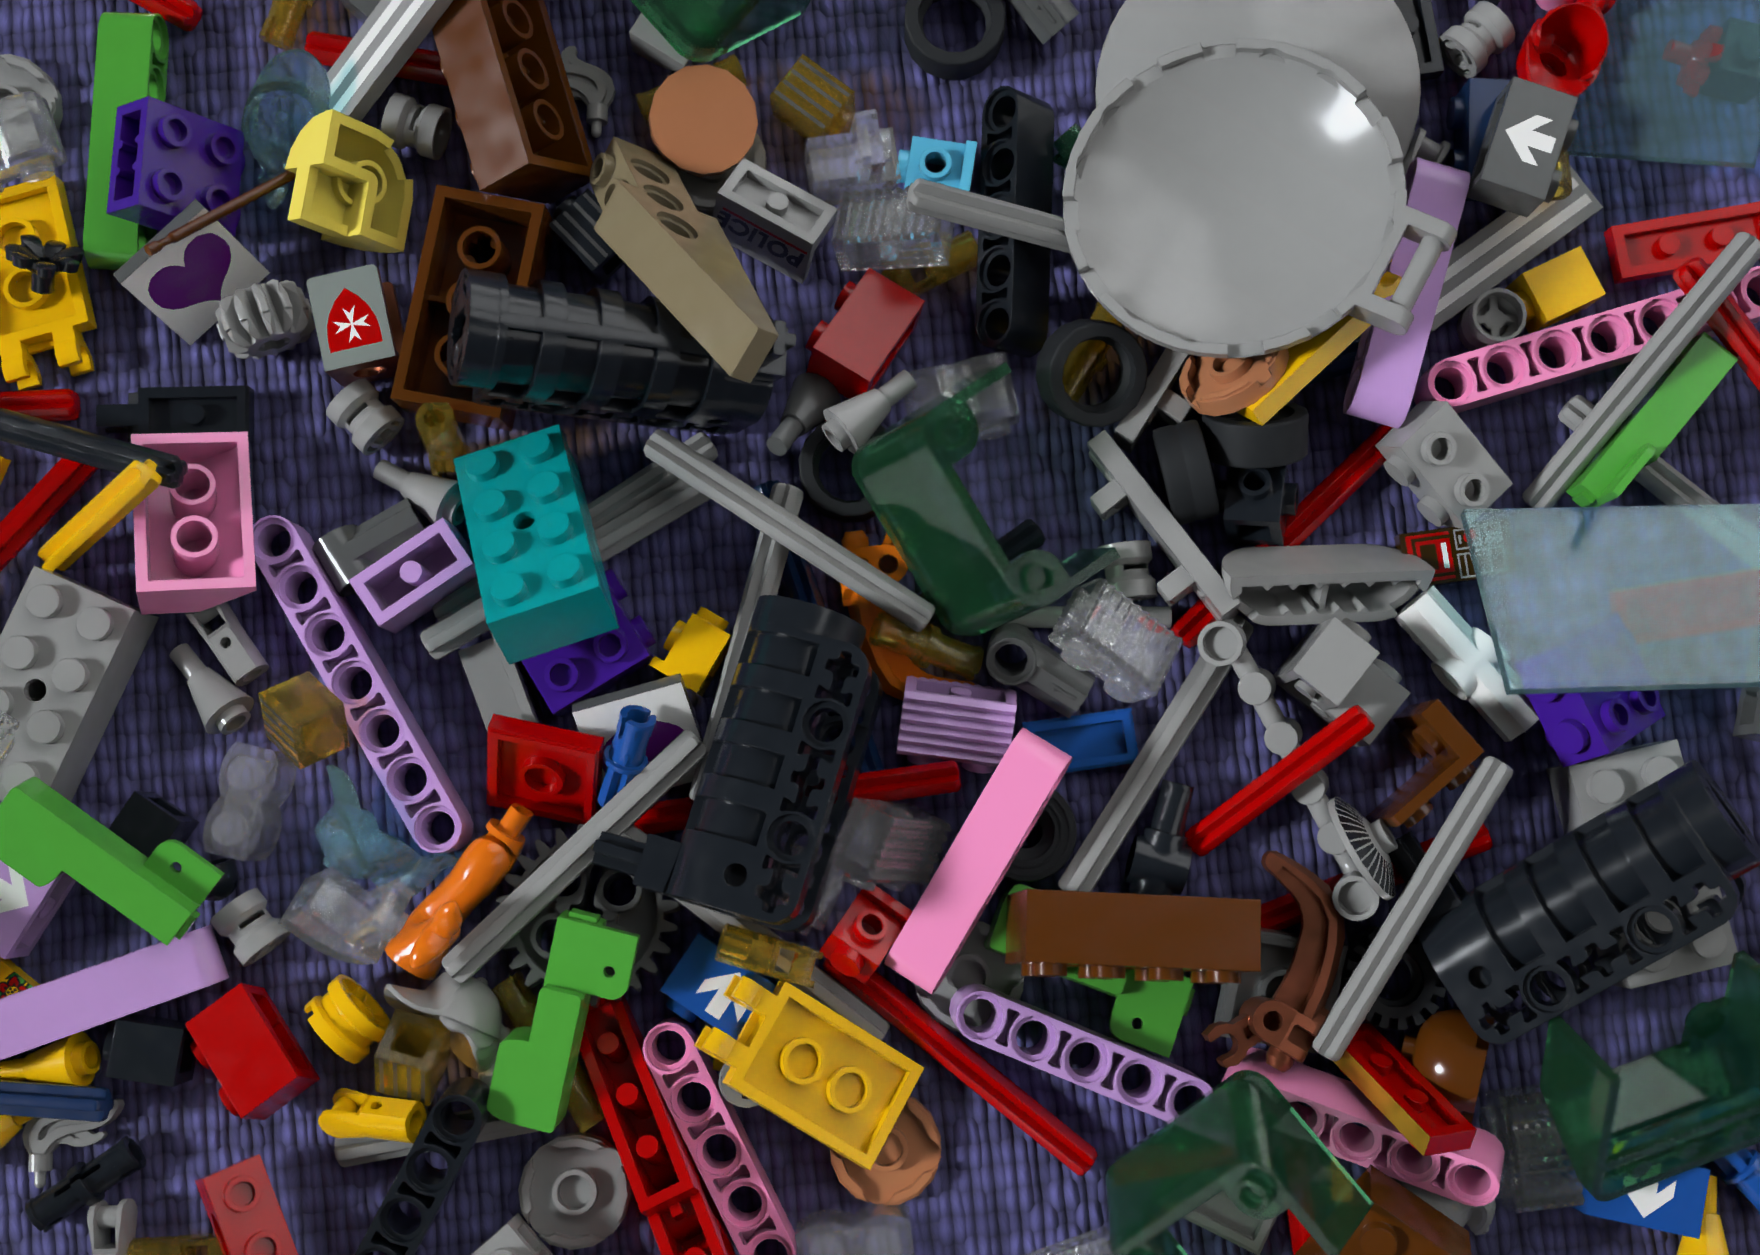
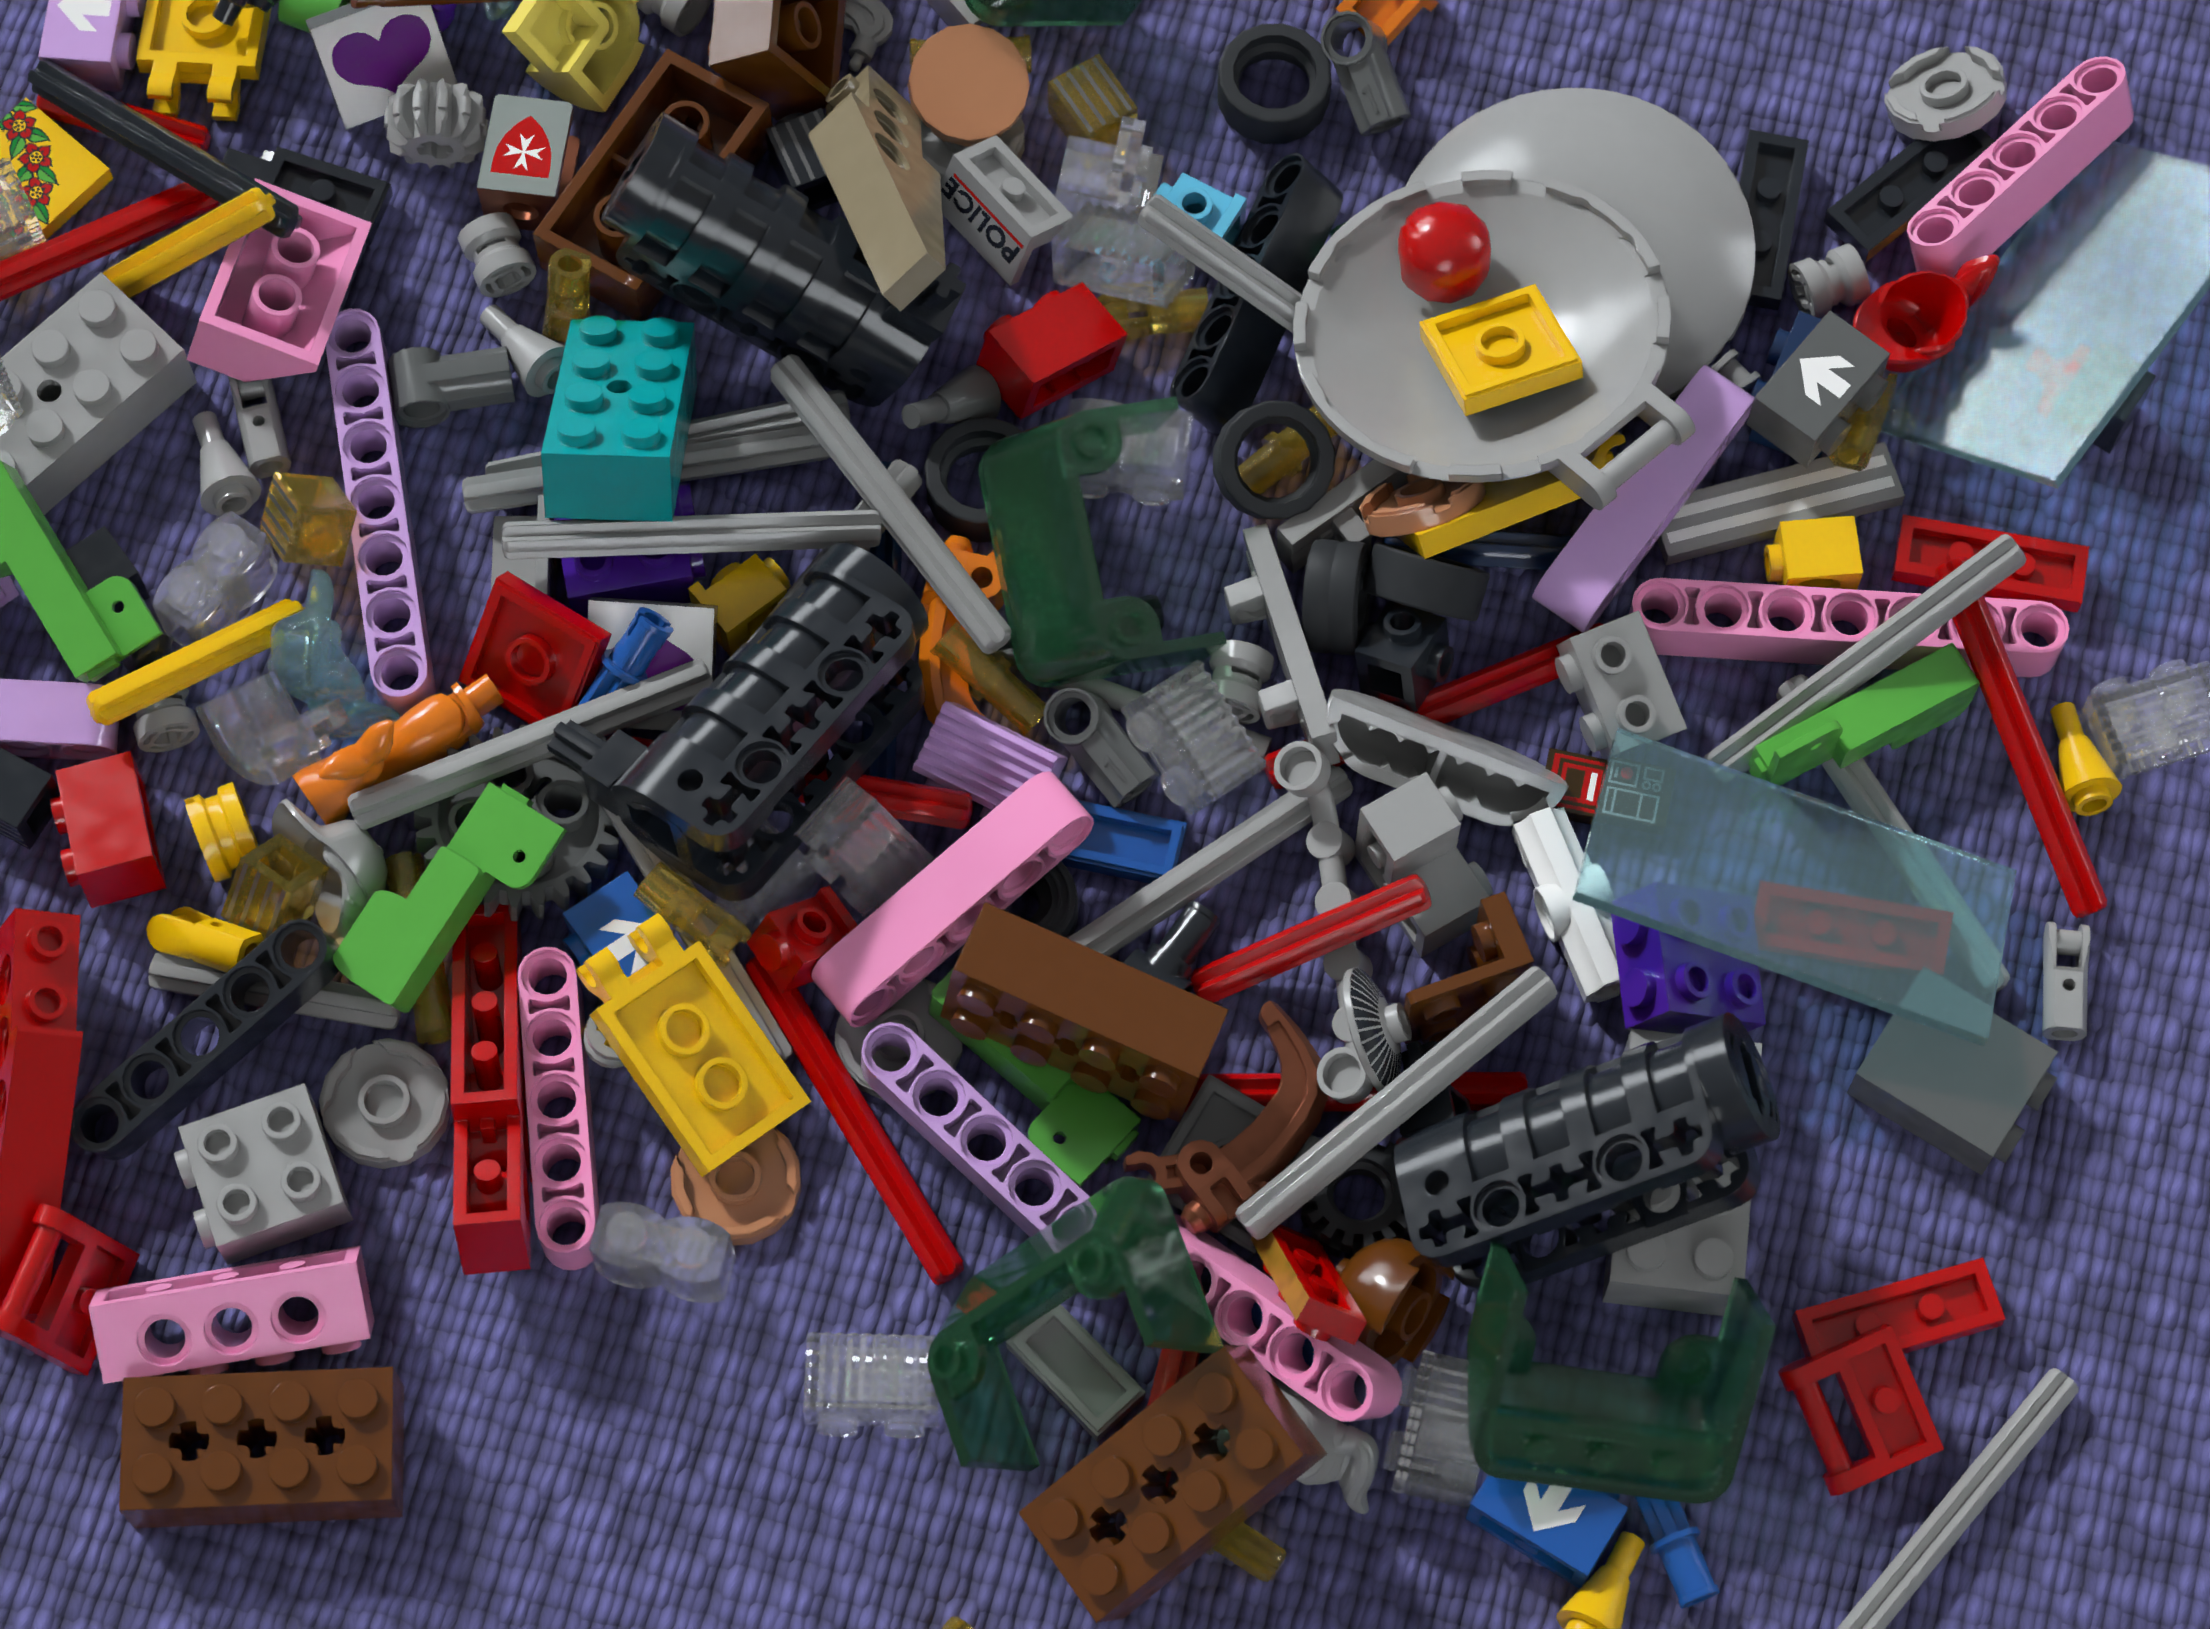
camera: 20 degrees right, 15 degrees down
(258, 889) = (187, 665): none -> yellow axle
(415, 576) = (482, 421): lavender brick -> none
(637, 626) = (690, 534): none -> light grey axle
(856, 419) = (1006, 415): light grey cone -> none
(1171, 137) = (1444, 252): none -> red hair
(1254, 212) = (1500, 350): none -> yellow tile
(1499, 312) = (1739, 553): light grey wheel -> none

